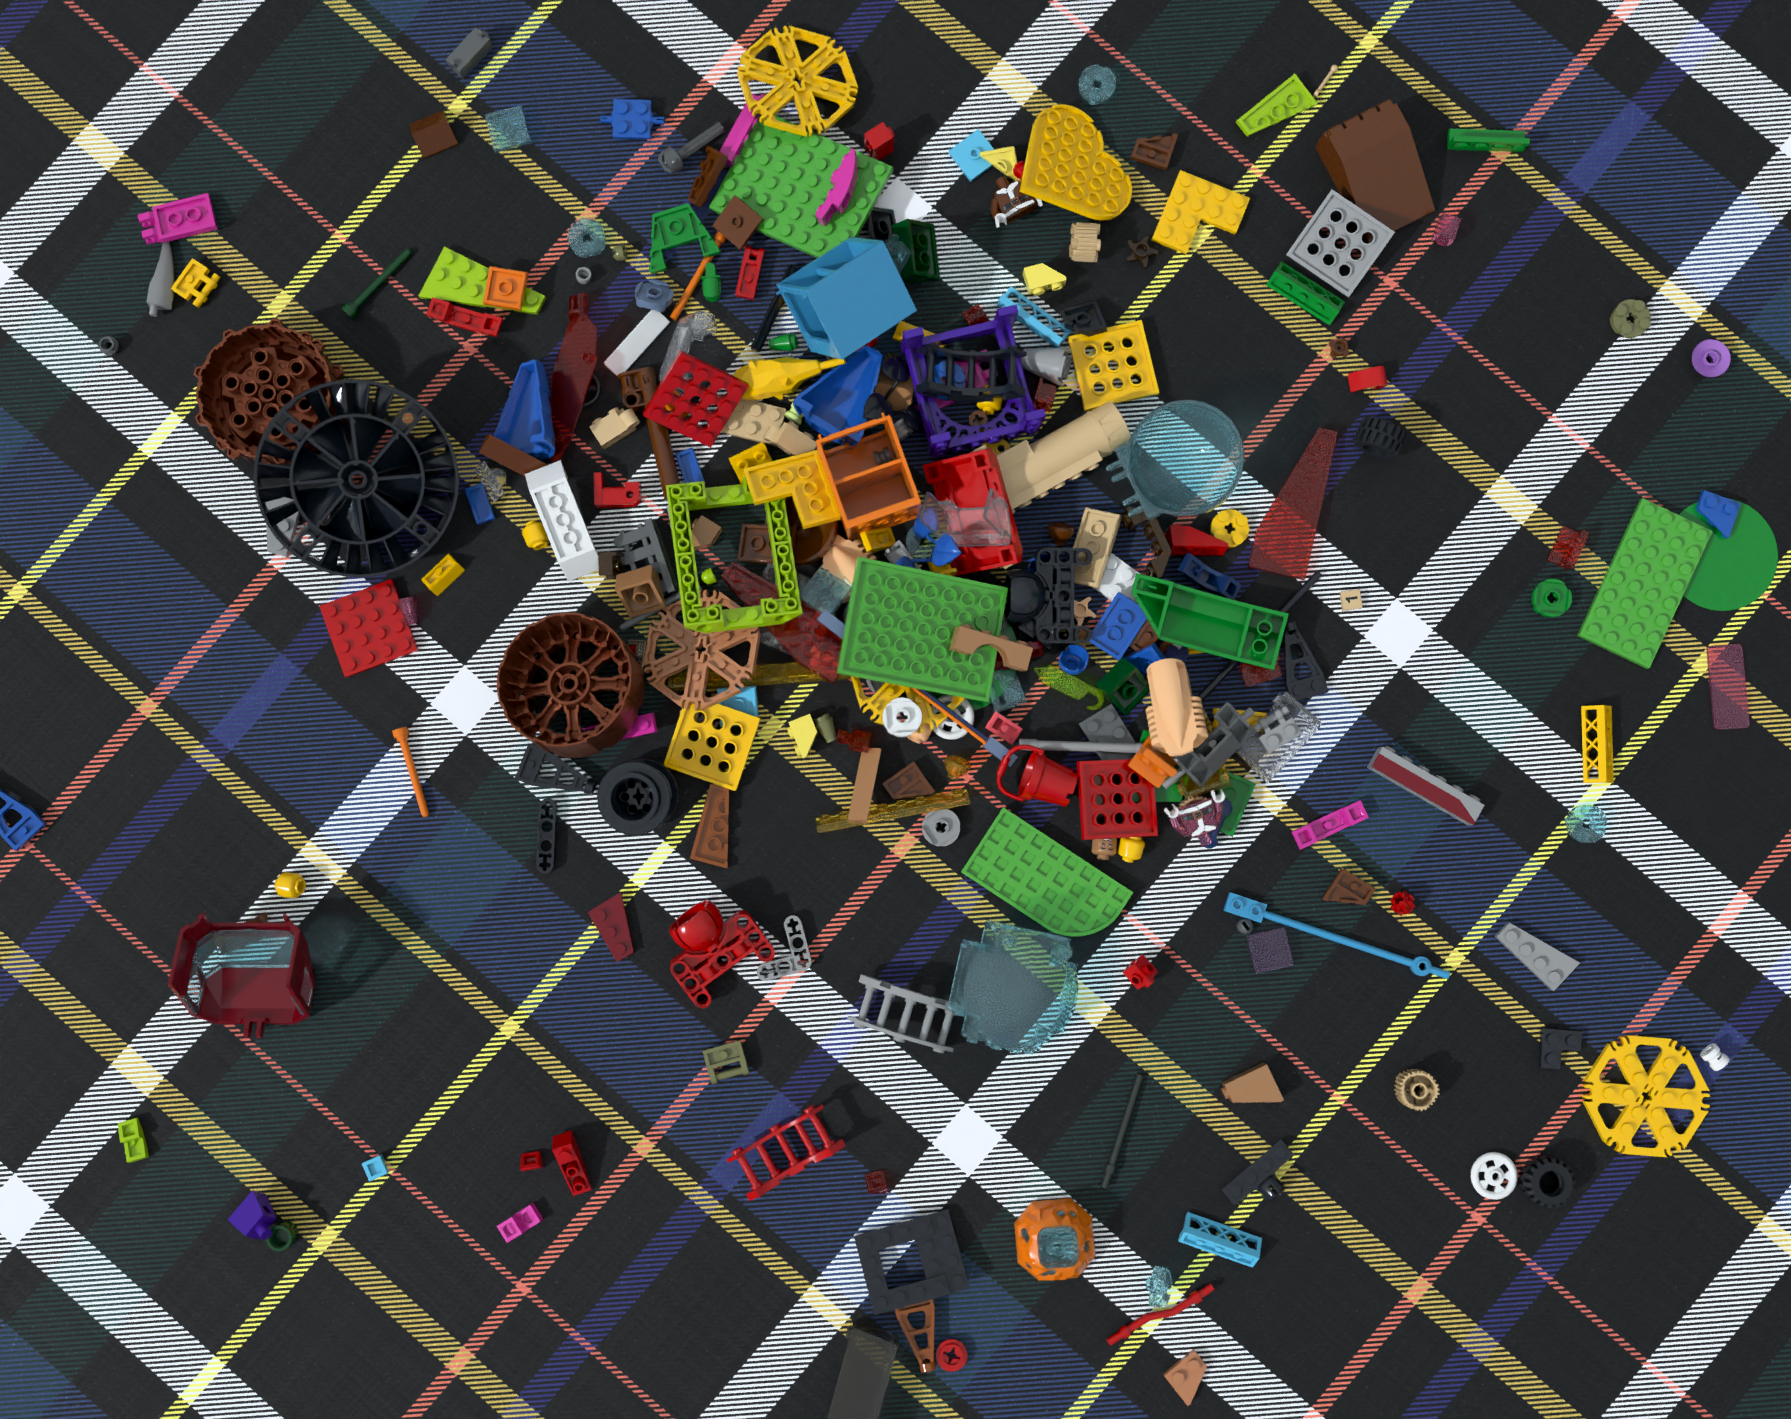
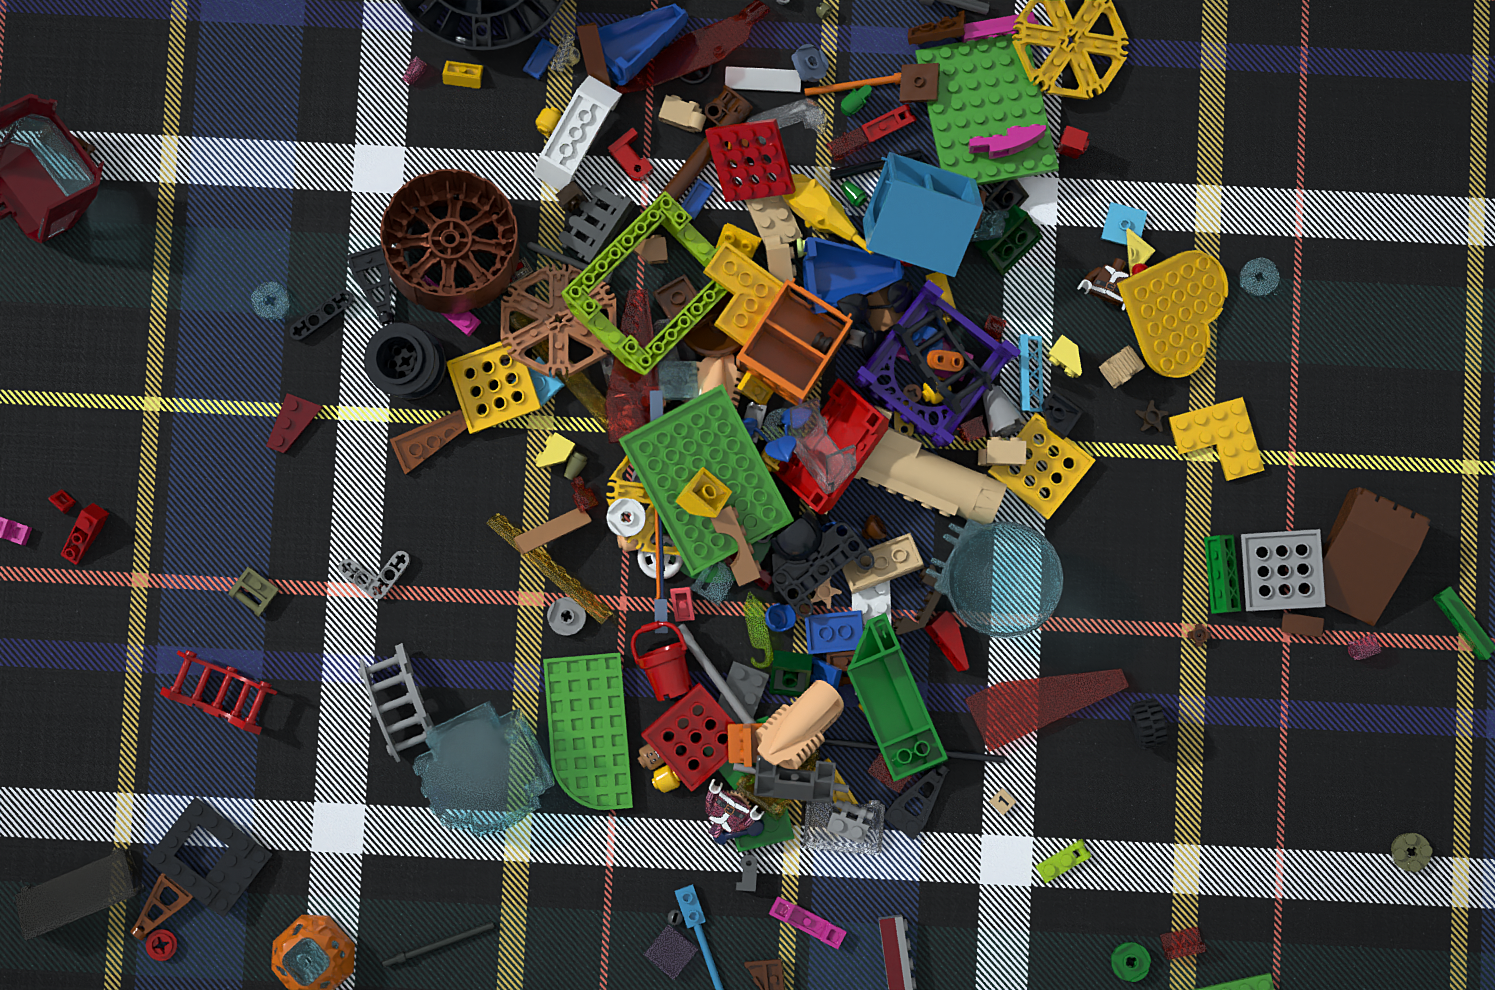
camera: 50 degrees right, 0 degrees up
(290, 885) = (131, 149): yellow head -> none
(368, 628) = (376, 51): red plate -> none
(402, 735) = (312, 142): orange piece -> none
(495, 859) = (261, 295): none -> clear light blue plate
(640, 591) = (568, 236): medium nougat slope -> none
(674, 229) = (876, 38): green wing -> none
(708, 576) = (622, 280): lime hinge -> none
(708, 937) = (338, 501): red beam -> none
(740, 317) = (847, 144): none -> clear red panel
(876, 1183) = (250, 782): clear red slope -> none
(908, 783) = (581, 563): reddish brown wing -> none
(934, 640) = (704, 495): none -> yellow slope
(956, 766) = (624, 590): clear yellow brick -> none
(975, 370) = (946, 360): none -> orange plate
(1080, 385) = (1003, 452): none -> tan hinge
(1140, 972) = (573, 862): red brick -> none
(1154, 151) = (1241, 364): reddish brown wing -> none
(1208, 579) = (929, 674): dark blue arch -> none
(1239, 523) = (993, 665): yellow plate -> none
(1255, 841) = (749, 866): none -> dark grey leg
(1279, 105) = (1360, 435): lime wing -> none
(1334, 68) = (1425, 455): tan hinge -> none
(1368, 378) = (1192, 677): red panel -> none
(1392, 263) = (1302, 625): none -> reddish brown slope
(1433, 589) = (1062, 861): none -> lime plate
(1716, 352) = (1438, 942): medium lavender dish -> none

